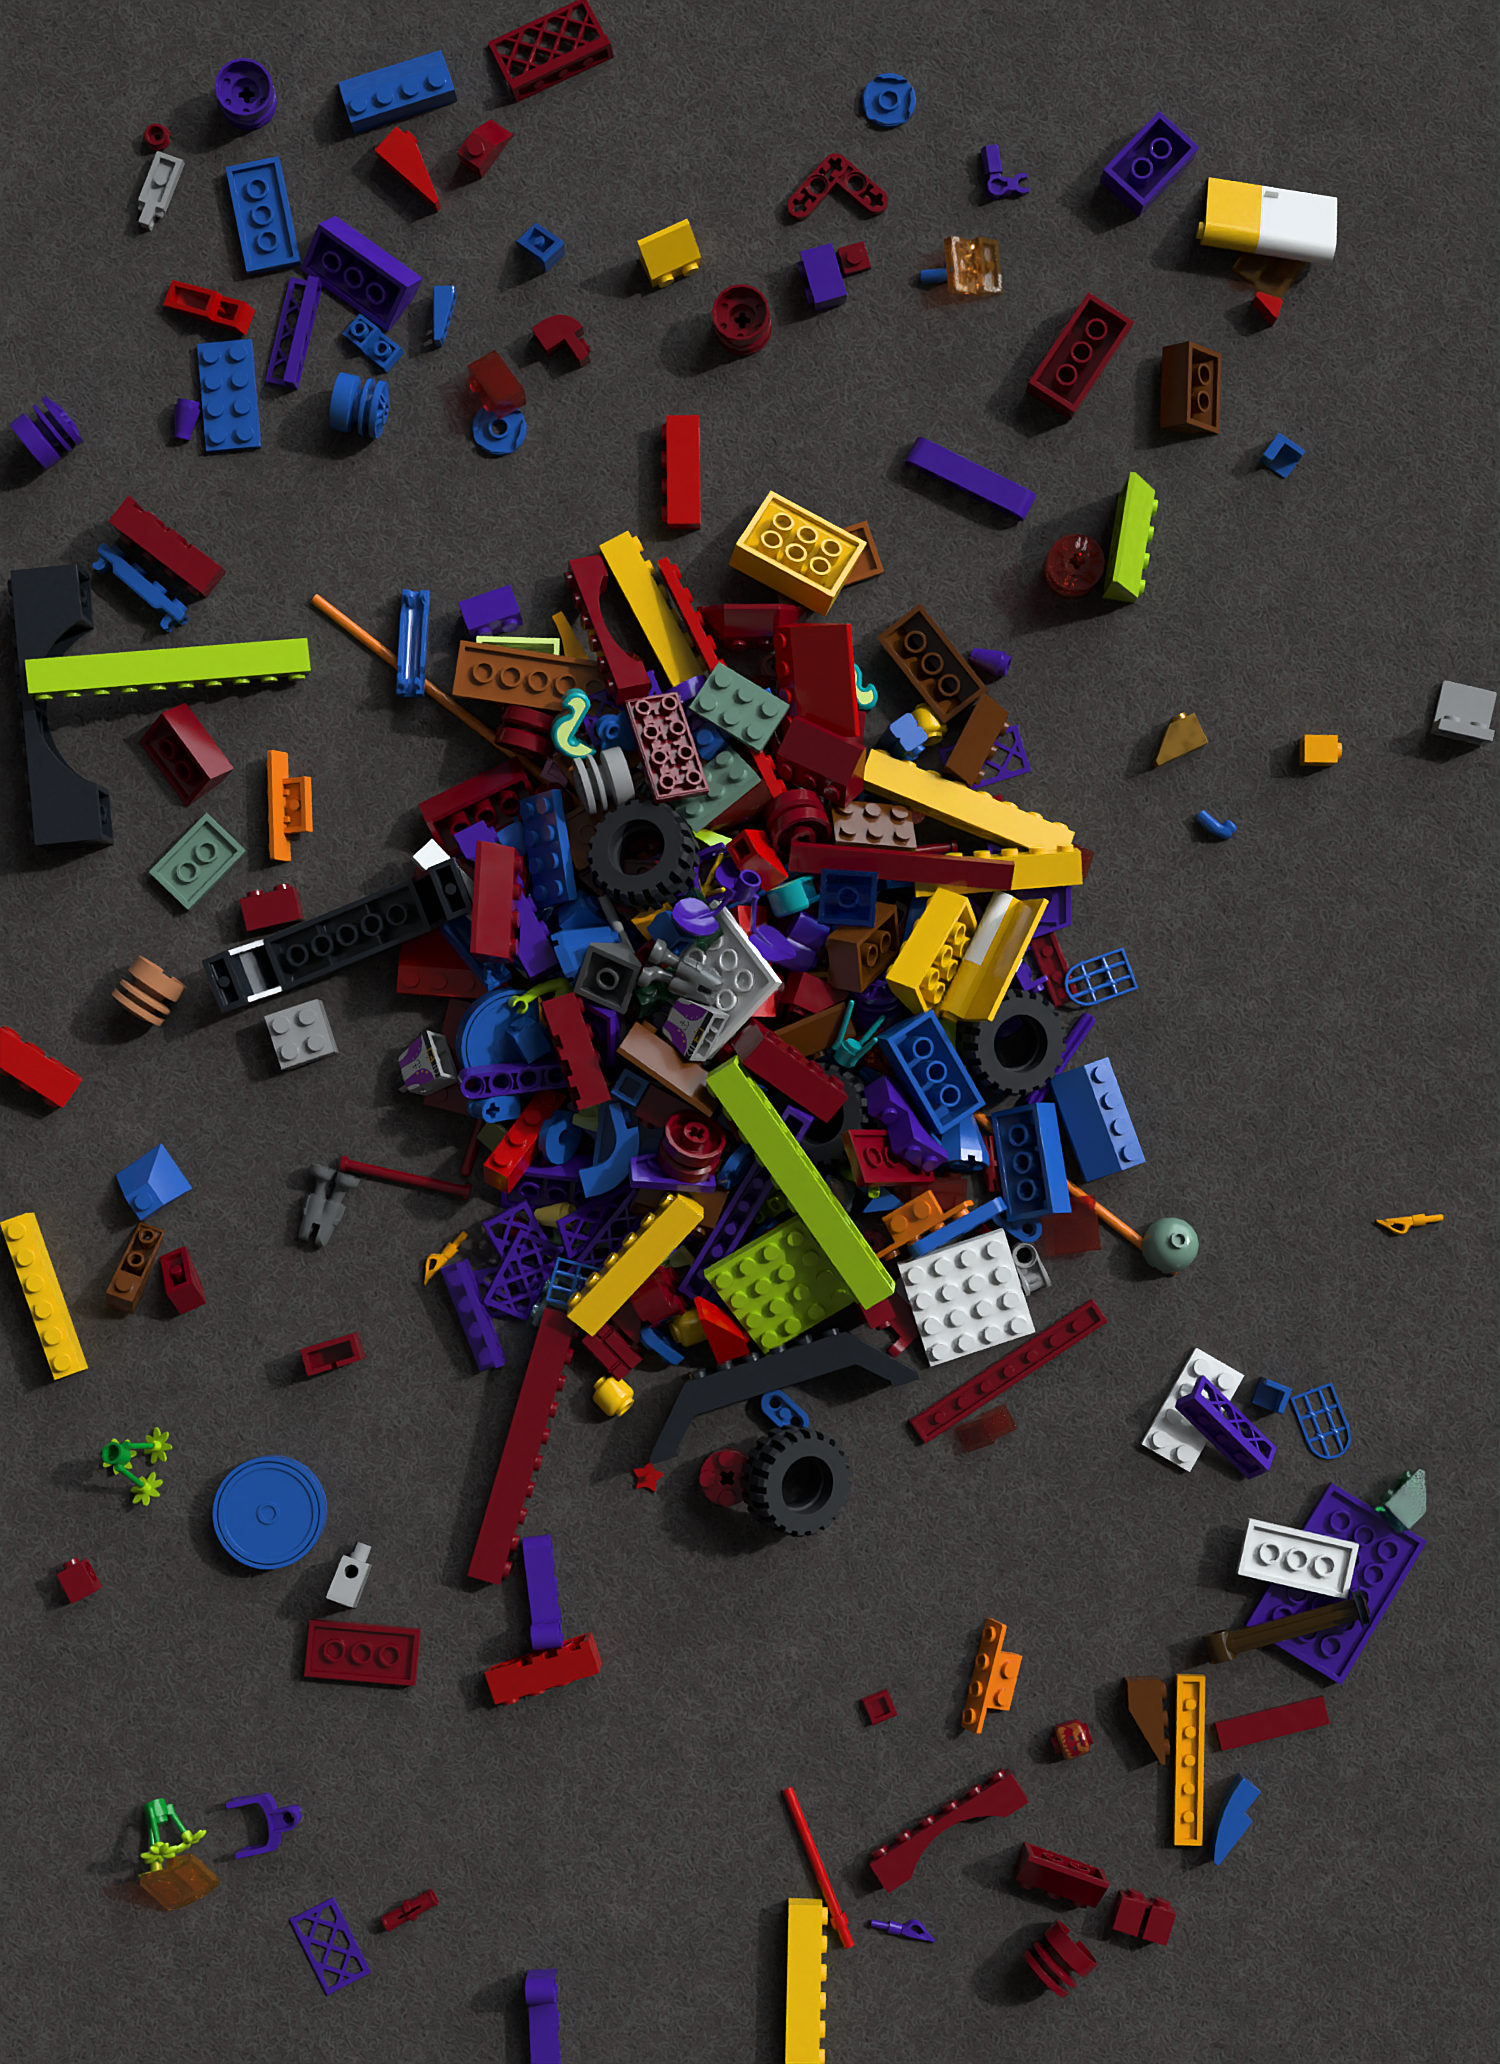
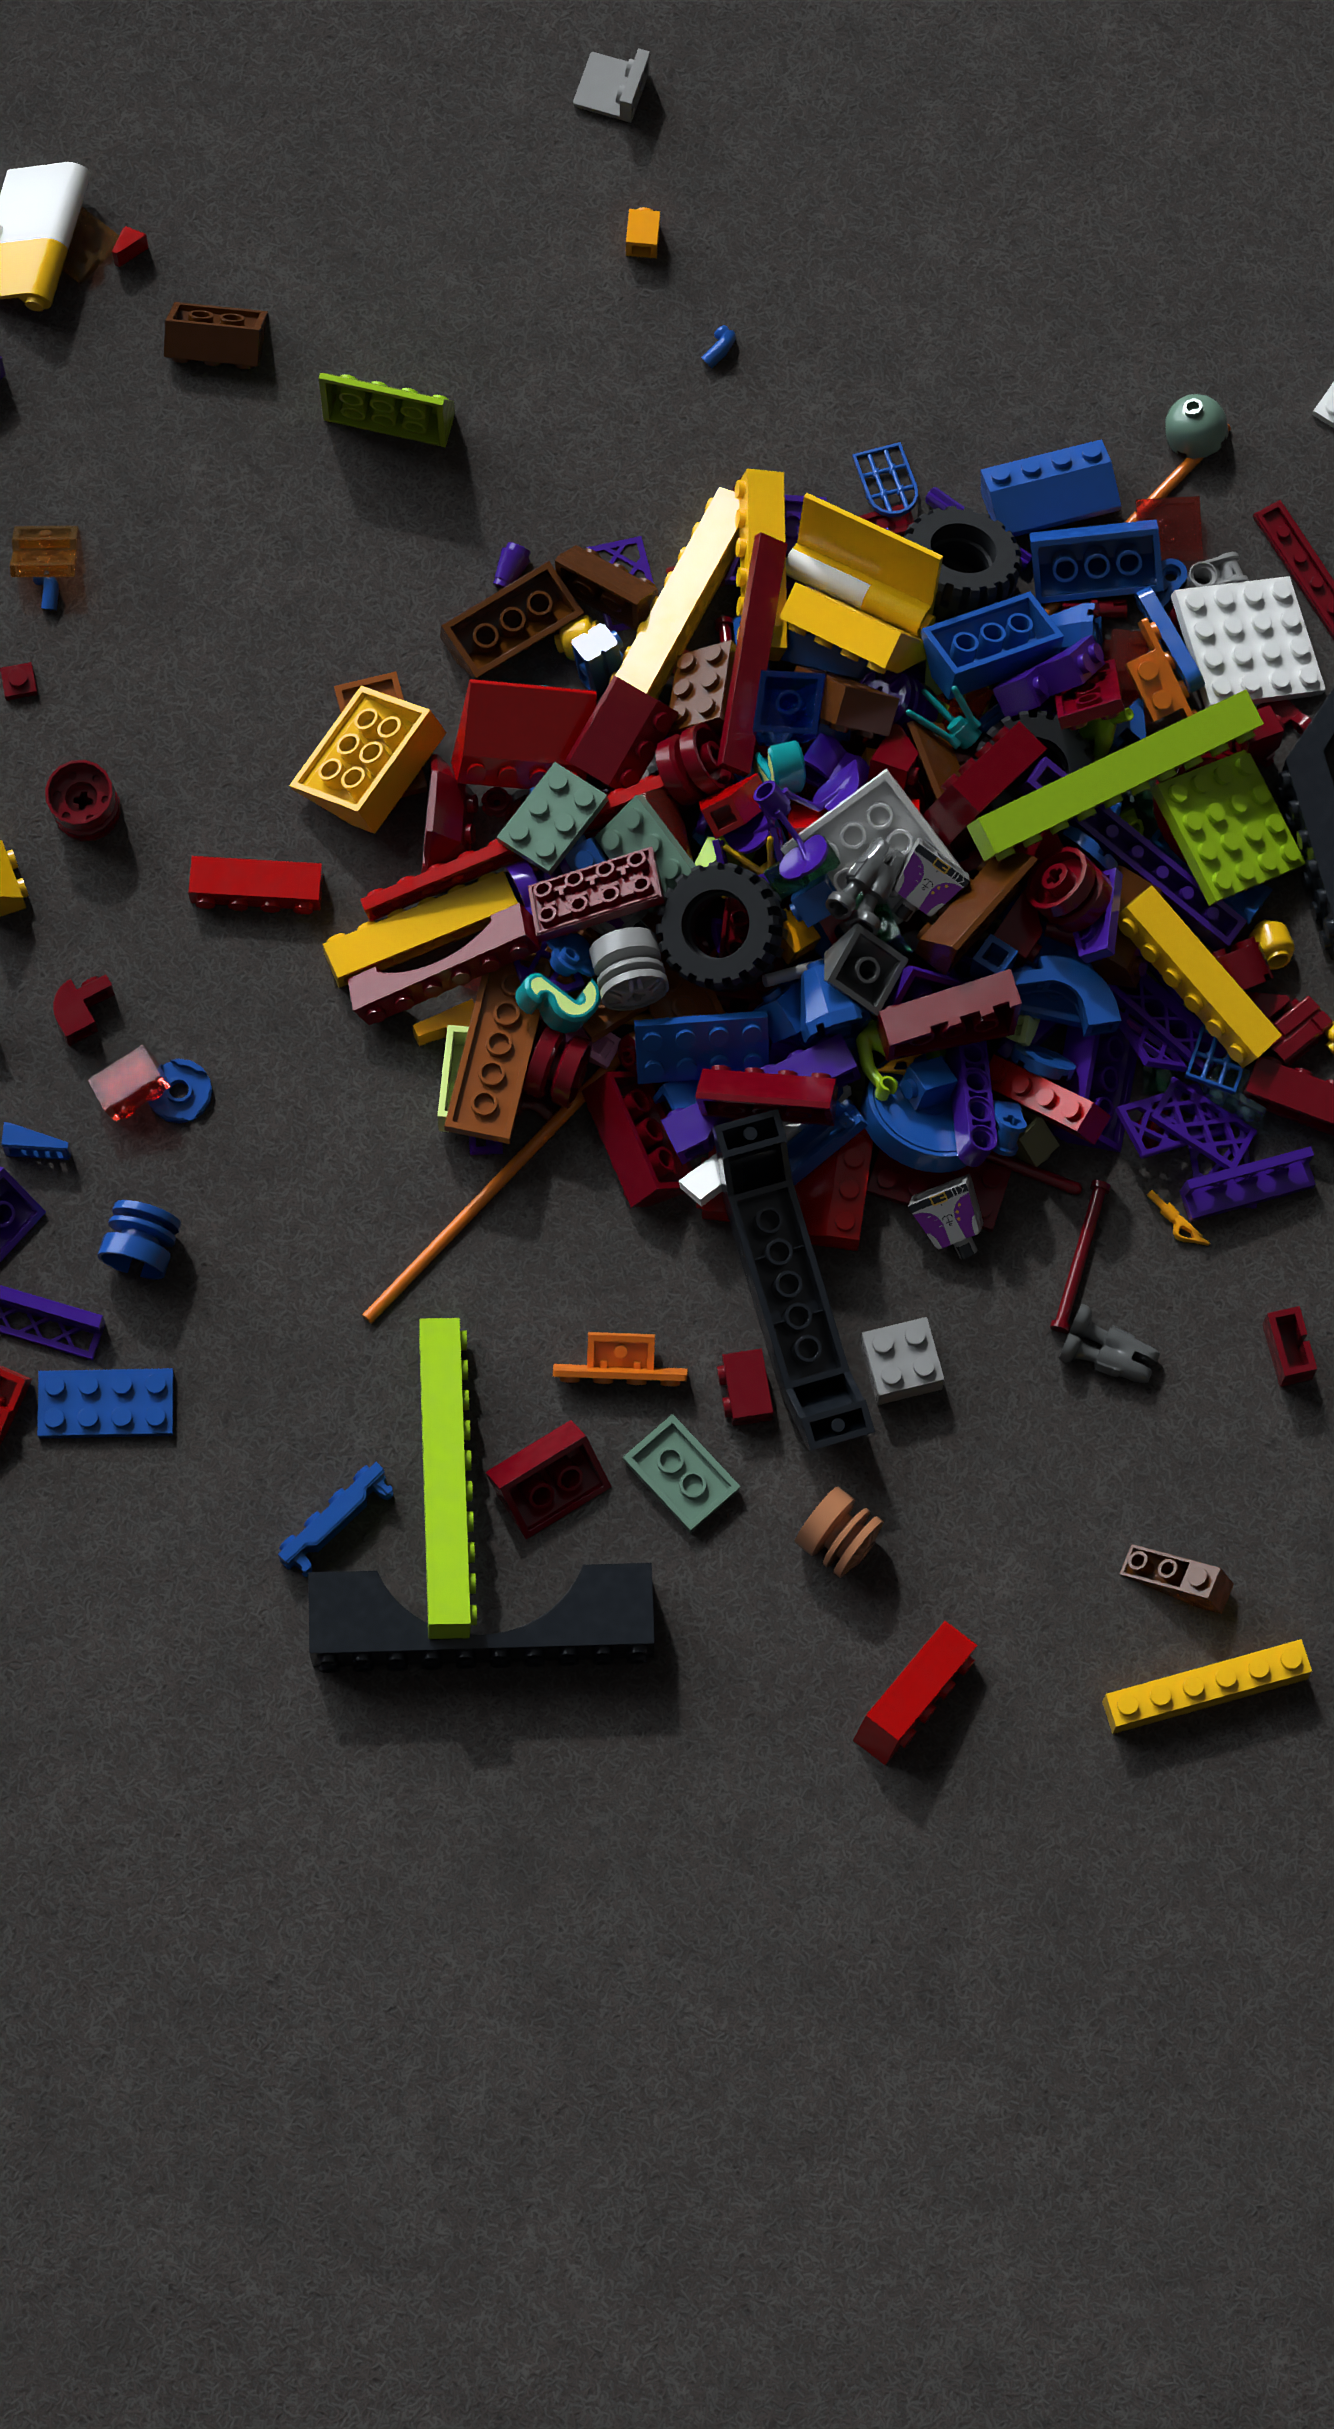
camera: 90 degrees left, 15 degrees down
(46, 432) = (131, 1611): dark purple wheel -> none
(152, 1183) = (1073, 1552): blue slope -> none
(166, 547) = (292, 1481): dark red wedge -> none
(182, 1280) = (1193, 1521): dark red slope -> none
(185, 417) = (128, 1455): dark purple cone -> none
(373, 343) = (59, 1229): blue slope -> none
(412, 643) = (435, 1201): blue piece -> none
(491, 613) = (407, 1108): dark purple brick -> none
(550, 1214) = (1134, 1080): light yellow cone -> none
(661, 1343) = (1285, 979): blue plate -> none
(722, 1330) = (1282, 901): red slope -> none
(822, 277) = (40, 712): dark purple brick -> none
(970, 477) = (293, 572): dark purple beam -> none
(1060, 574) = (416, 481): clear red wheel -> none
(1079, 356) = (165, 443): dark red brick -> none
(1179, 739) = (619, 375): pearl gold slope -> none
(1282, 455) = (299, 246): blue panel -> none
(1413, 1220) = (1180, 188): light orange hand -> none

